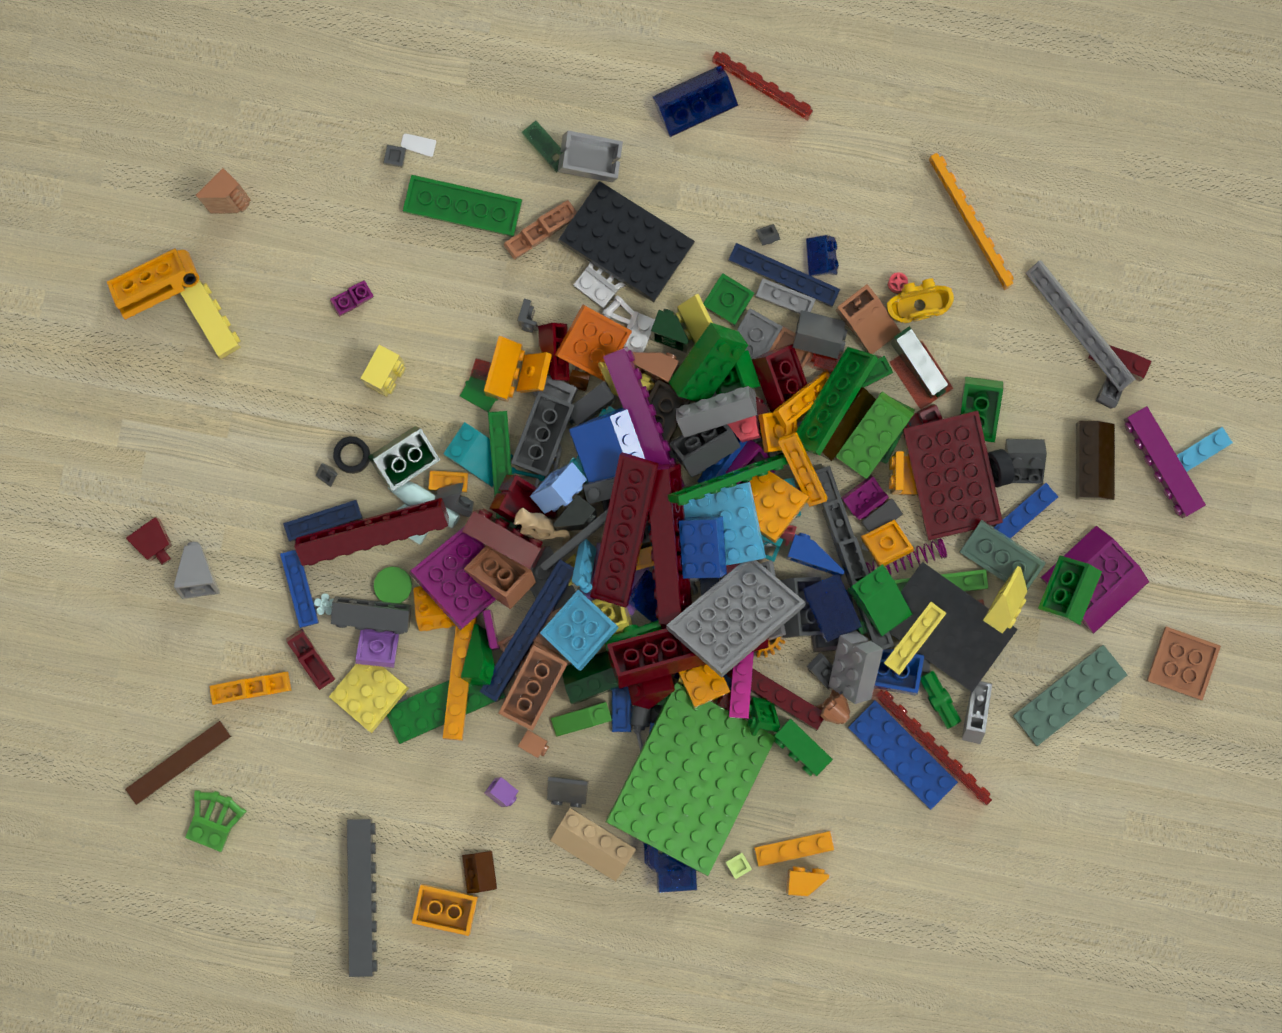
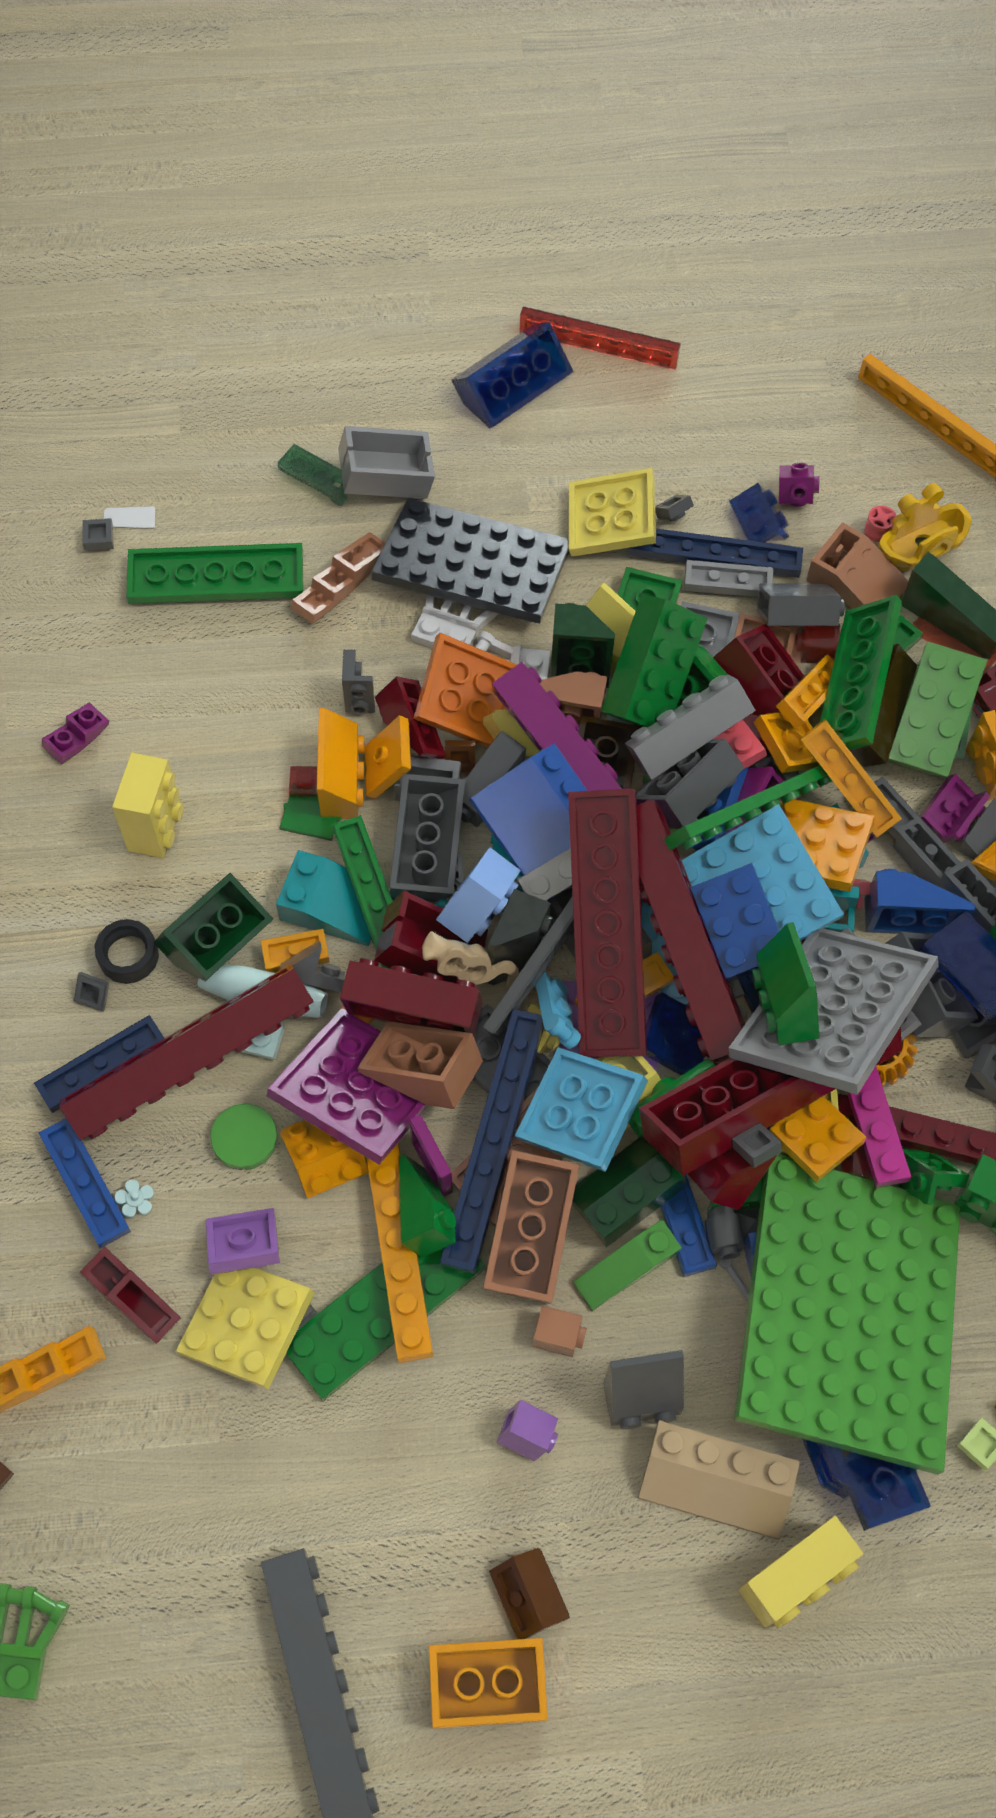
camera: 20 degrees left, 20 degrees down
(370, 615) = (216, 1190): dark grey brick -> none
(617, 903) = (802, 1574): none -> light yellow brick
(664, 683) = (757, 1145): none -> dark grey plate
(708, 602) = (787, 988): none -> green slope
(725, 230) = (612, 512): none -> light yellow plate
(852, 241) = (797, 484): none -> magenta brick

